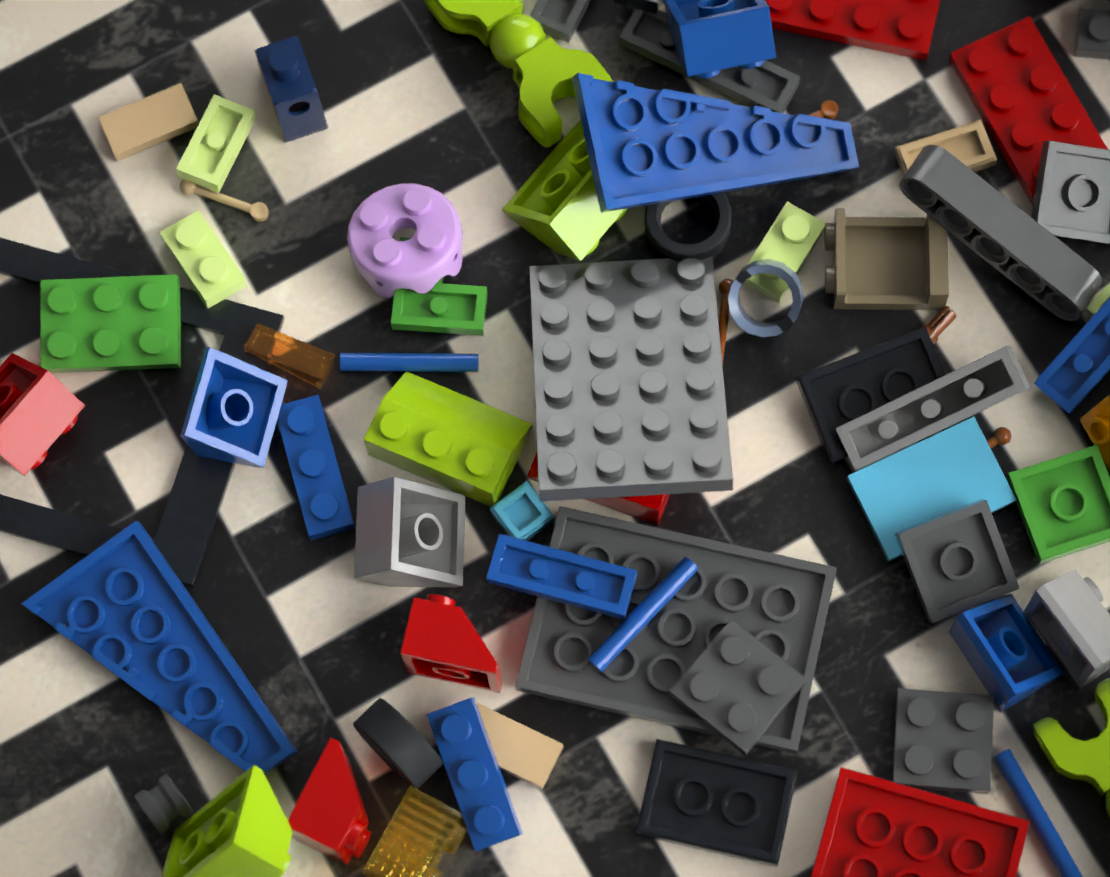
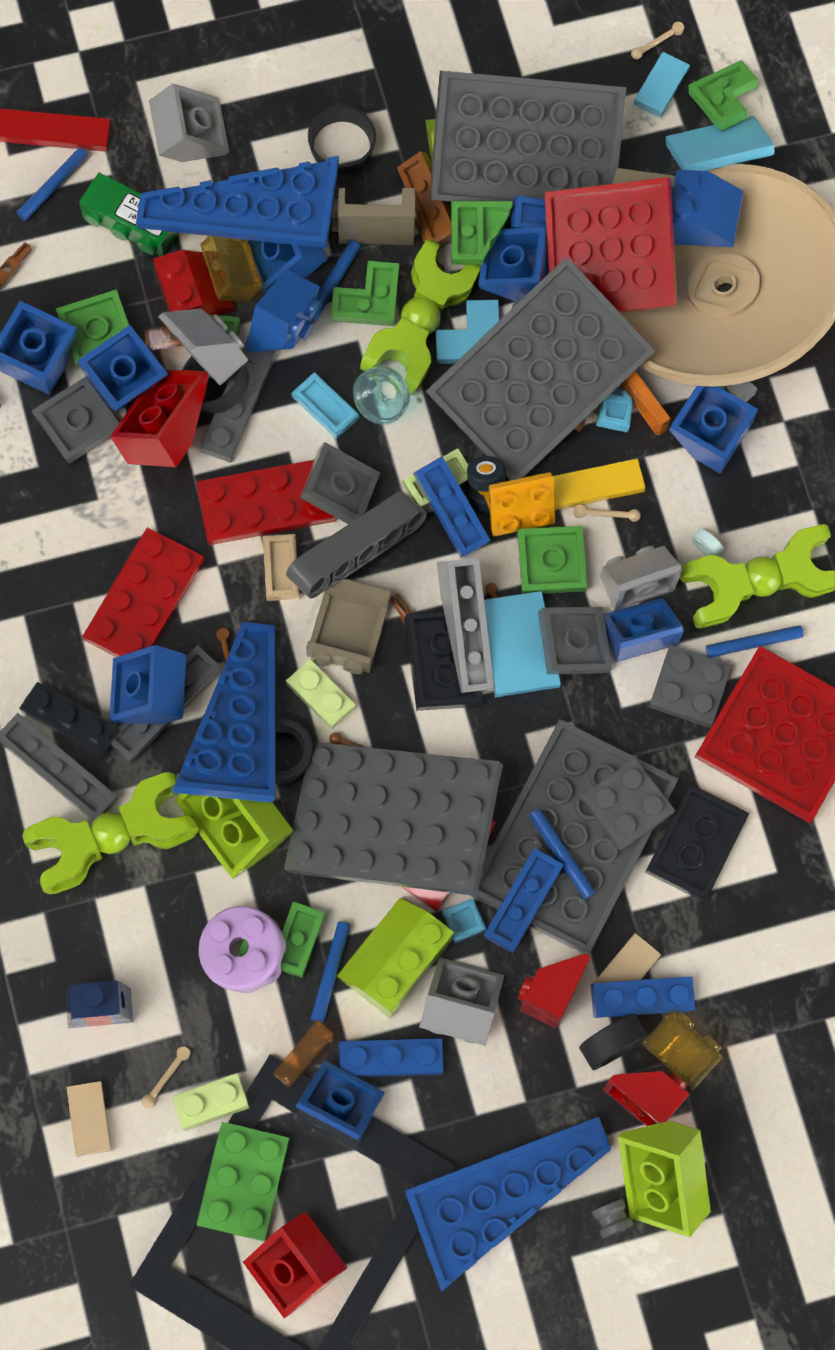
camera: 85 degrees left, 0 degrees up
(216, 143) = (124, 1071): yellowish green plate -> none
(756, 327) = (375, 708): sand blue piece -> none

